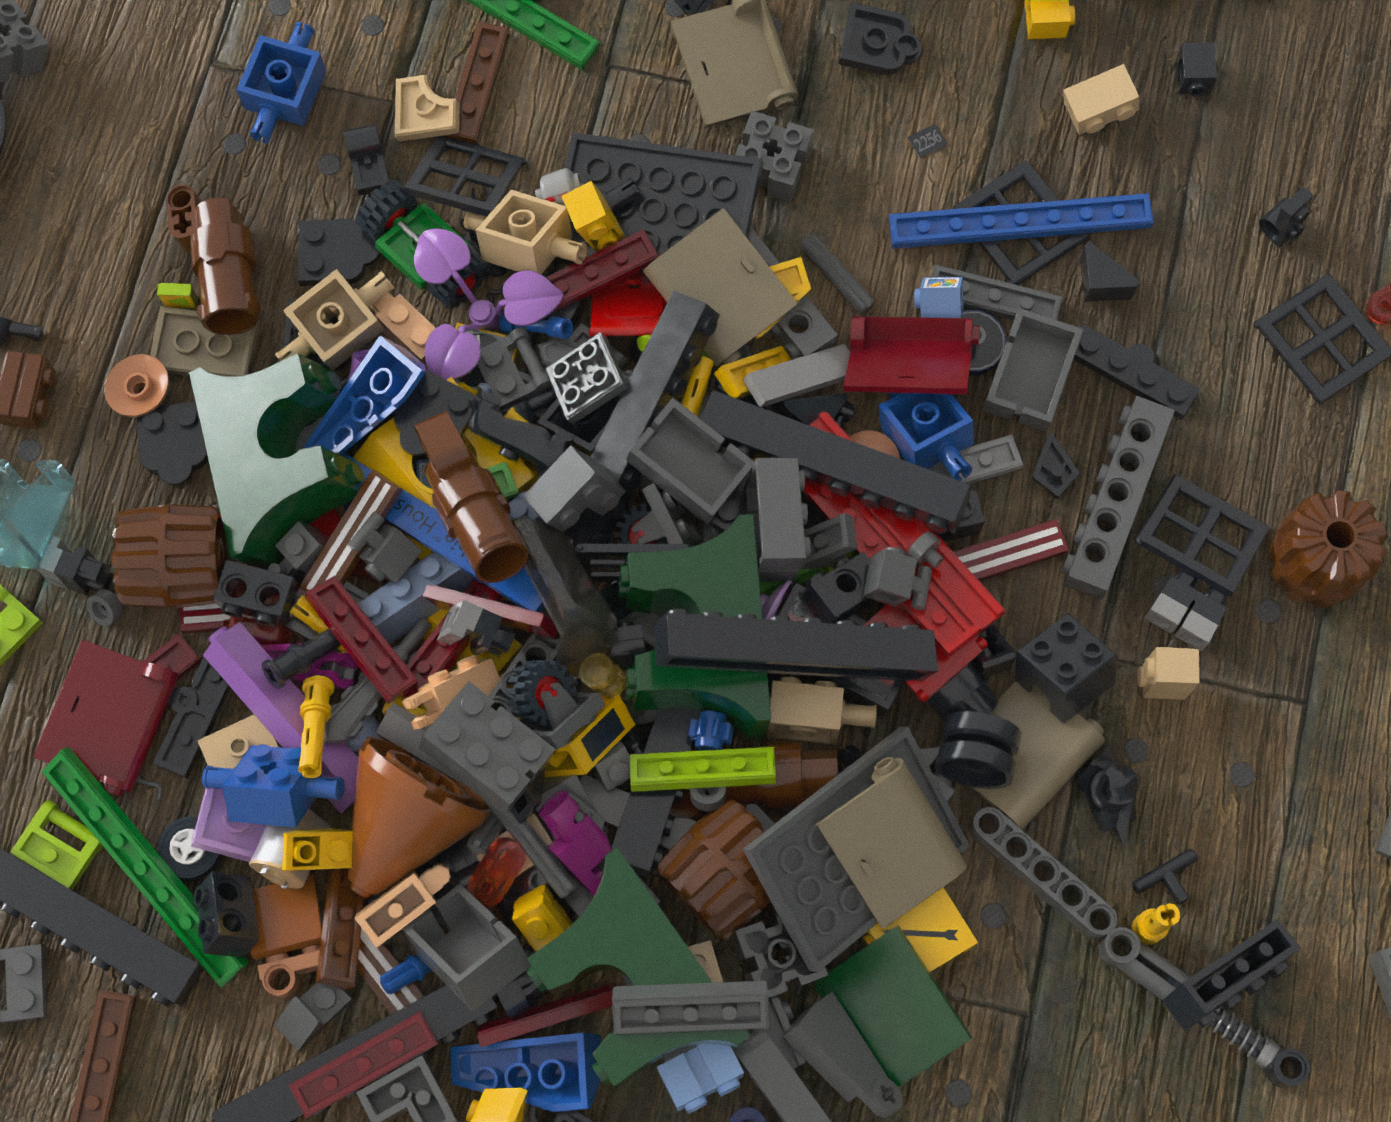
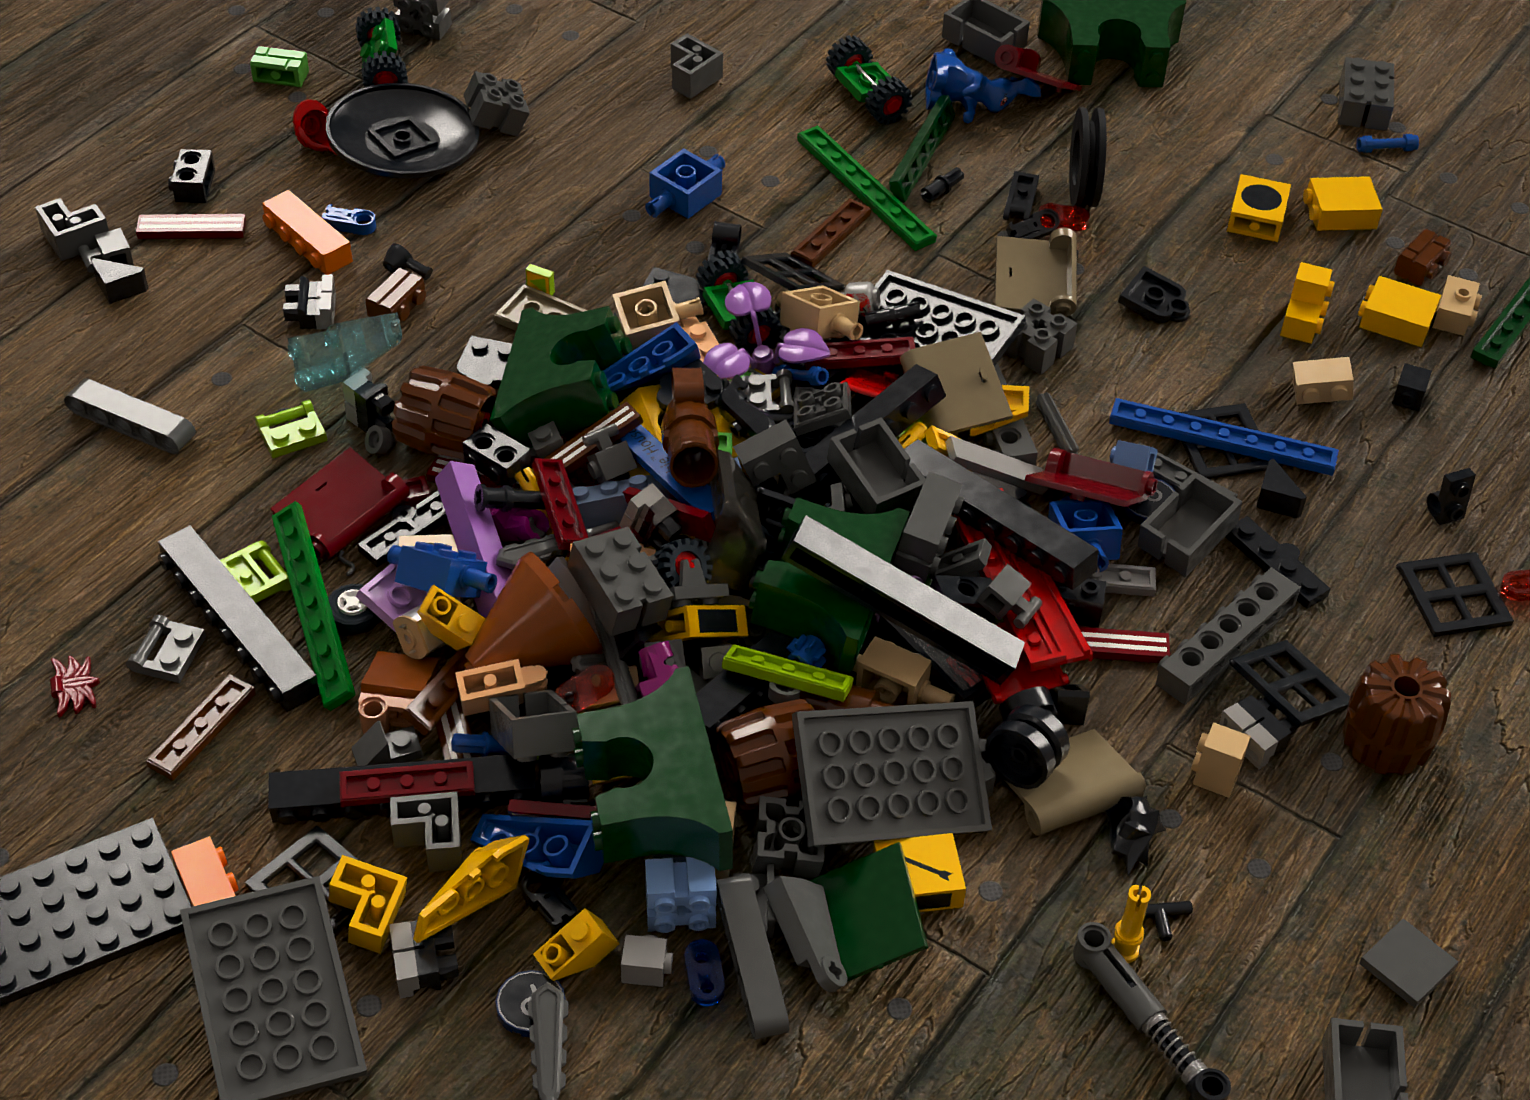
camera: 20 degrees right, 25 degrees down
(131, 375) = (480, 320): nougat dish -> none
(220, 258) = (585, 264): reddish brown piece -> none
(226, 915) = (356, 650): black brick -> none
(315, 713) = (498, 537): yellow pin -> none
(421, 112) = (781, 234): tan tile -> none
(593, 216) = (876, 310): yellow slope -> none
(602, 675) = (739, 585): clear yellow wheel -> none
(690, 1007) = (692, 791): dark grey slope -> none
(899, 839) = (921, 775): dark tan door -> none
(925, 550) = (1042, 585): dark grey tile -> none
(927, 140) = (1169, 370): black sticker -> none
(1054, 468) = (1181, 601): black piece -> none
(1060, 876) = (1019, 826): dark grey beam -> none
(1066, 666) = (1133, 721): black piece -> none
(1230, 975) = (1183, 985): black brick -> none

